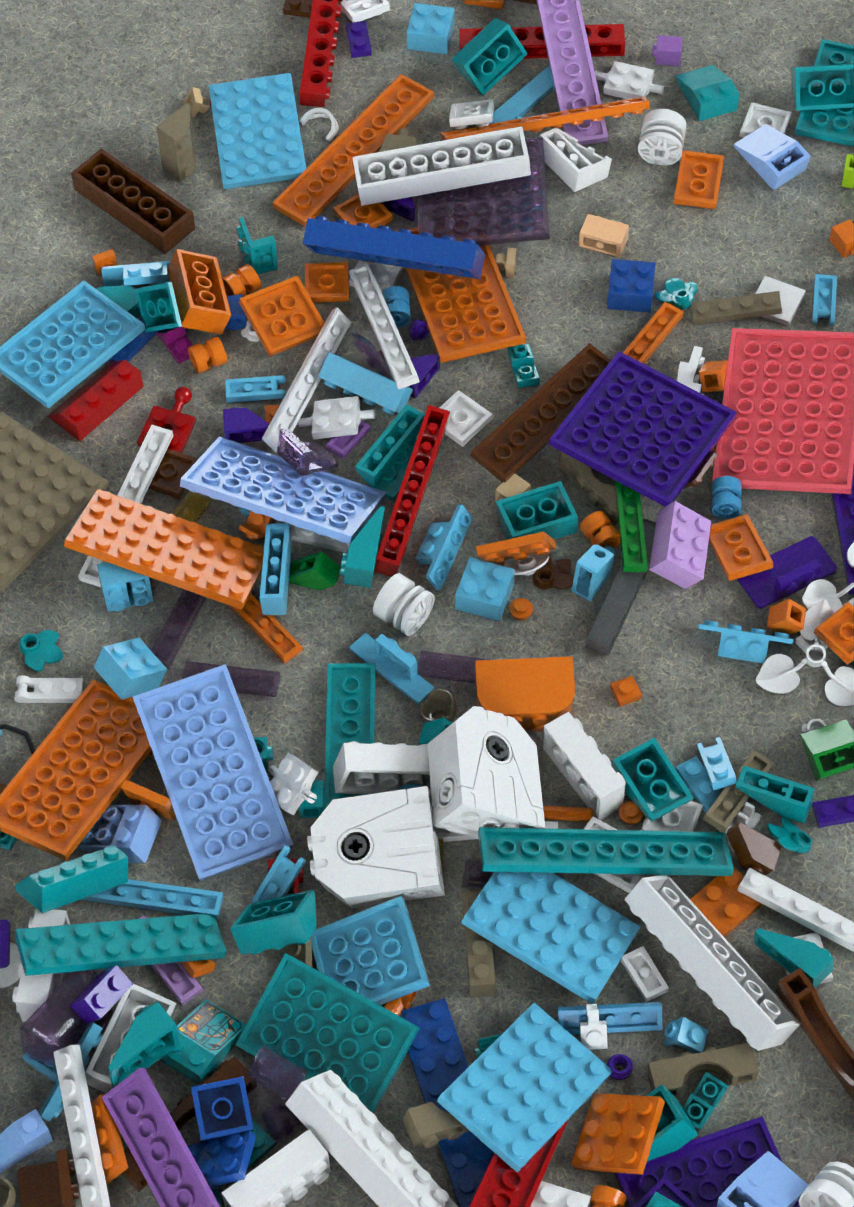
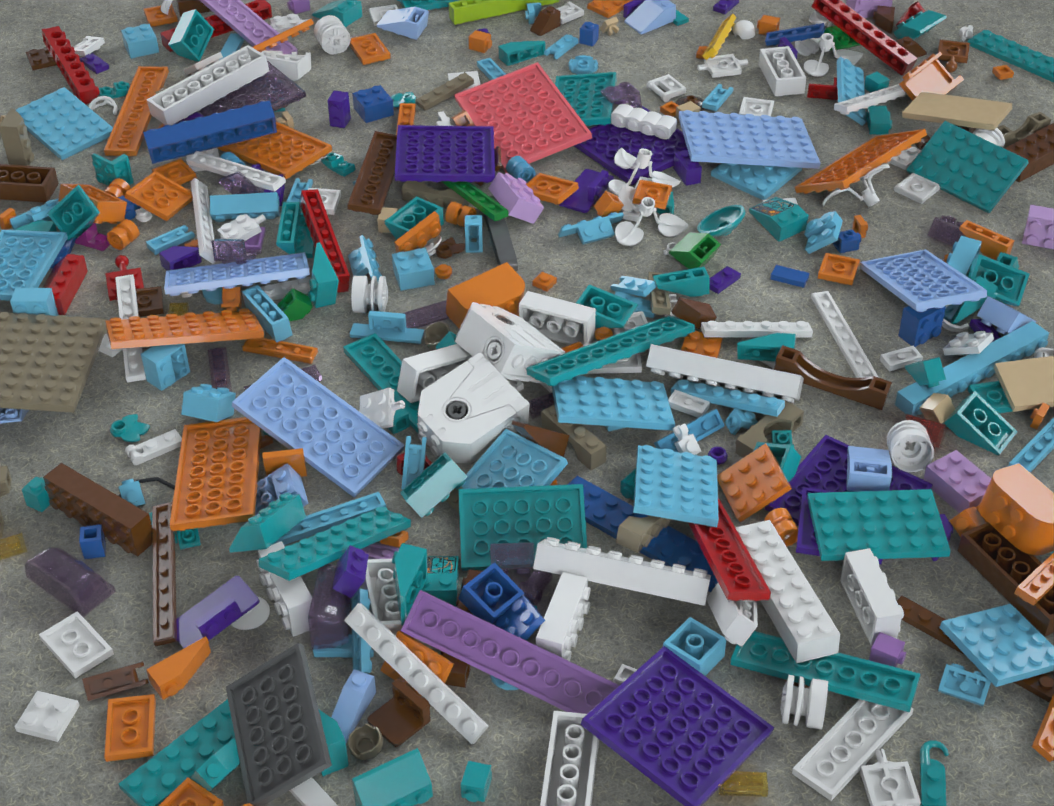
camera: 35 degrees left, 15 degrees down
(45, 420) = (34, 301): none -> medium azure brick
(348, 102) = (119, 90): none -> teal slope
(436, 936) = (546, 438): none -> reddish brown slope
(444, 389) = (295, 193): none -> medium azure hinge
(578, 278) = (339, 109): none -> dark purple brick
(603, 235) = (326, 87): light nougat brick -> none
(693, 1001) = (731, 398): none -> medium azure plate
(790, 836) = (714, 301): teal plate -> none

